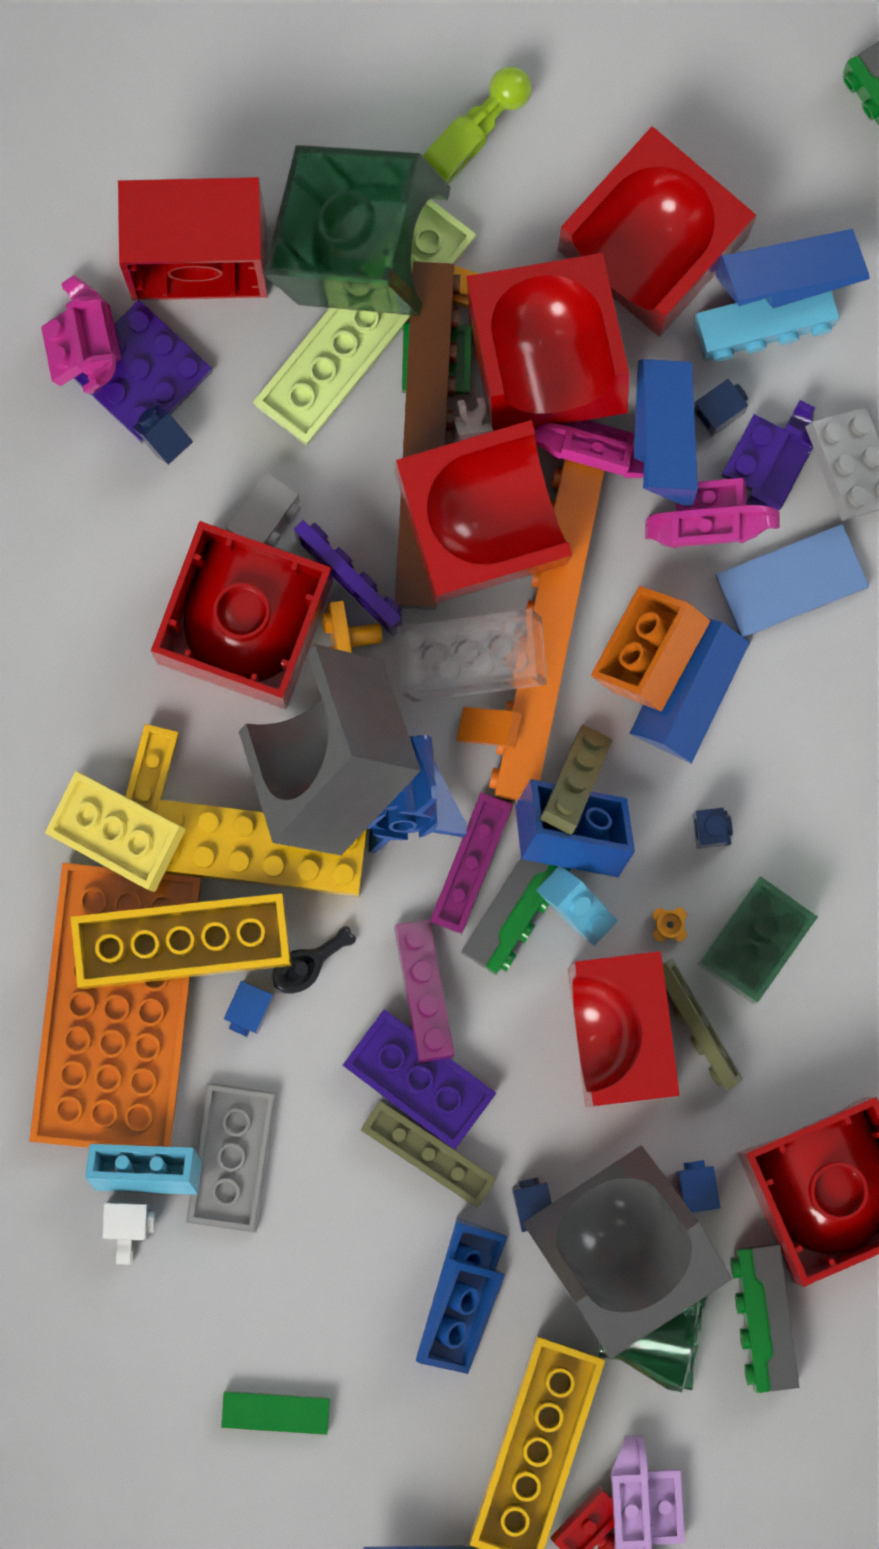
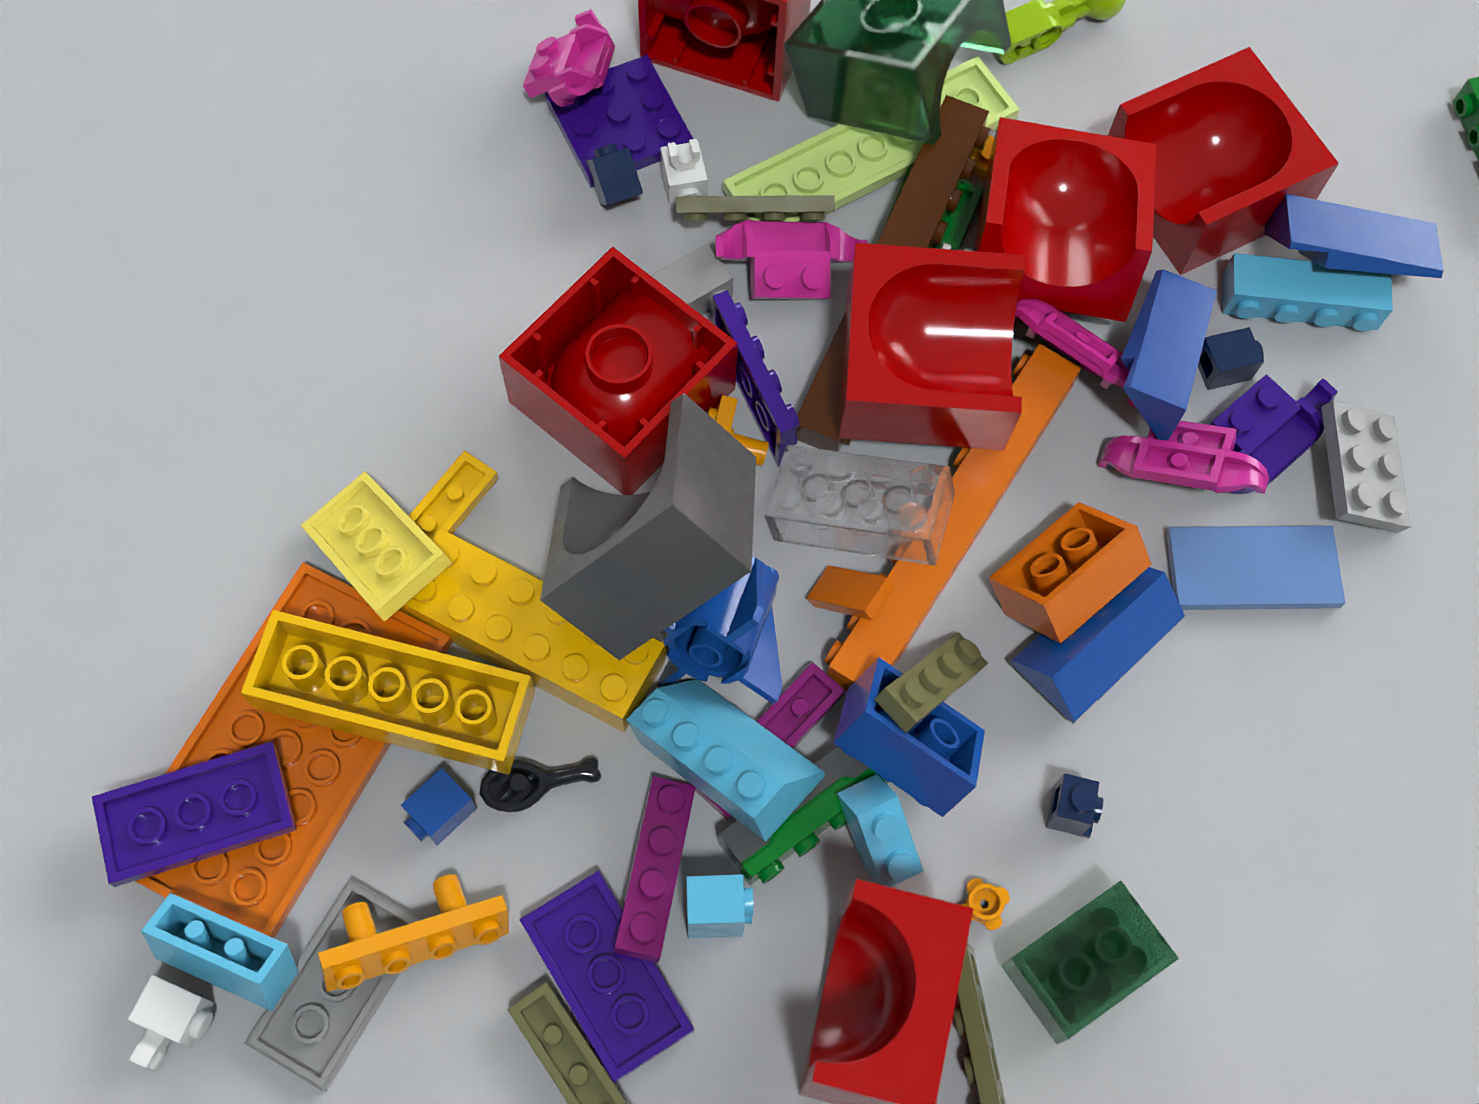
camera: 20 degrees right, 15 degrees down
(77, 1082) = (193, 814): none -> dark purple plate
(218, 408) = (683, 171): none -> white brick
(268, 1119) = (399, 948): none -> light orange plate
(299, 417) = (772, 207): none -> olive plate
(334, 452) = (787, 257): none -> dark pink plate
(443, 889) = (725, 754): none -> medium azure slope
(481, 1003) = (718, 906): none -> medium azure brick

